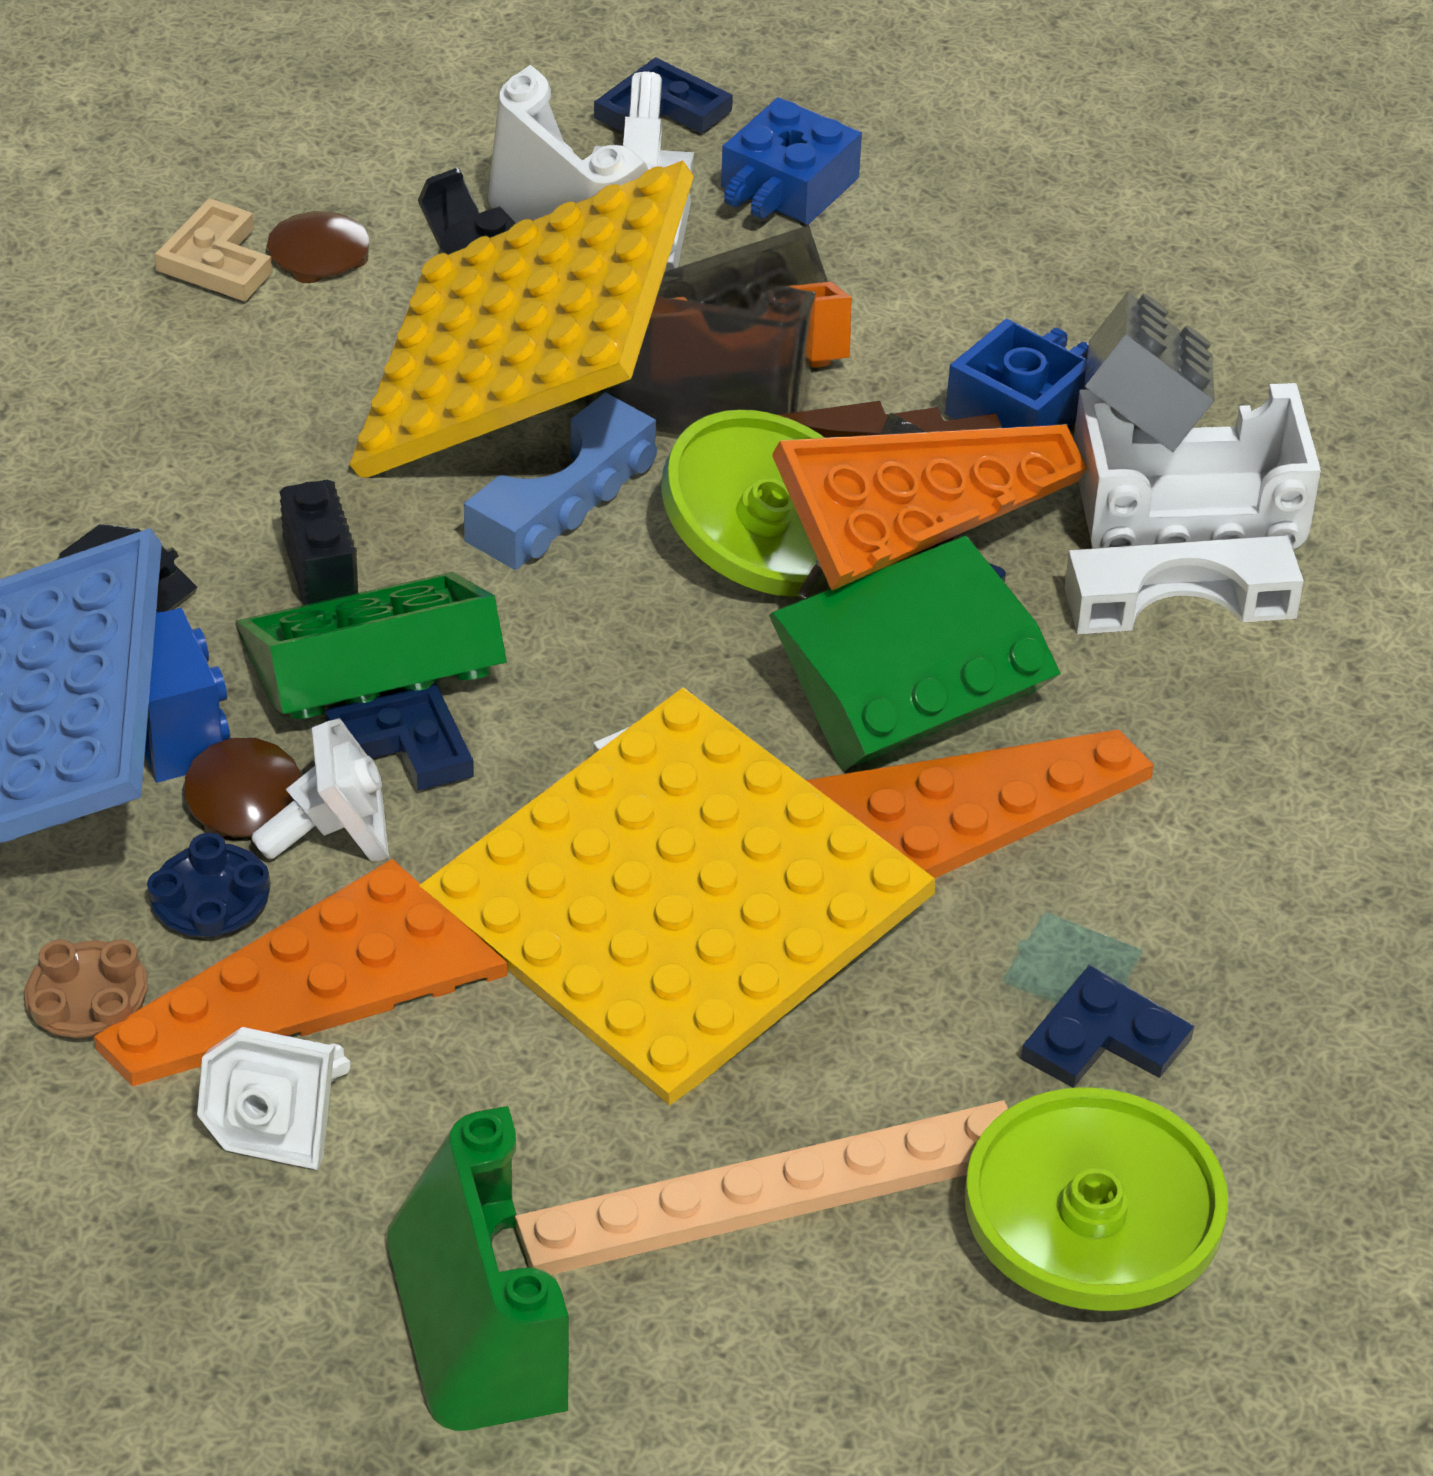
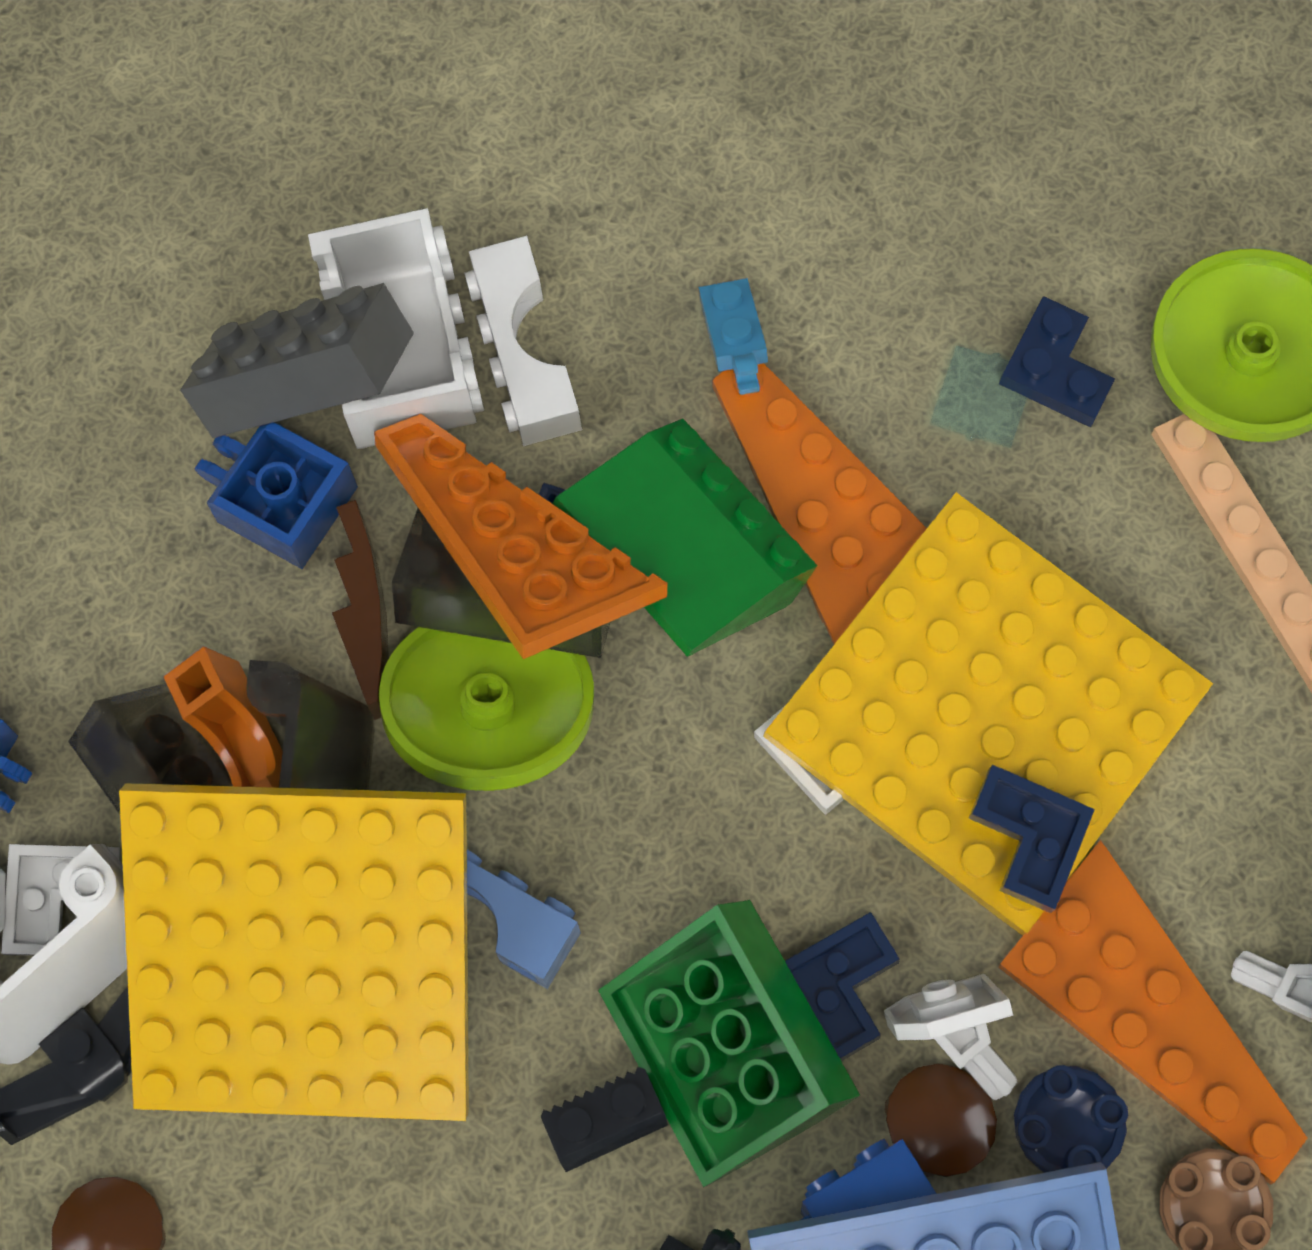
camera: 90 degrees left, 25 degrees up
(521, 886) = (1047, 830): none -> dark blue plate
(1171, 747) = (734, 331): none -> dark azure plate

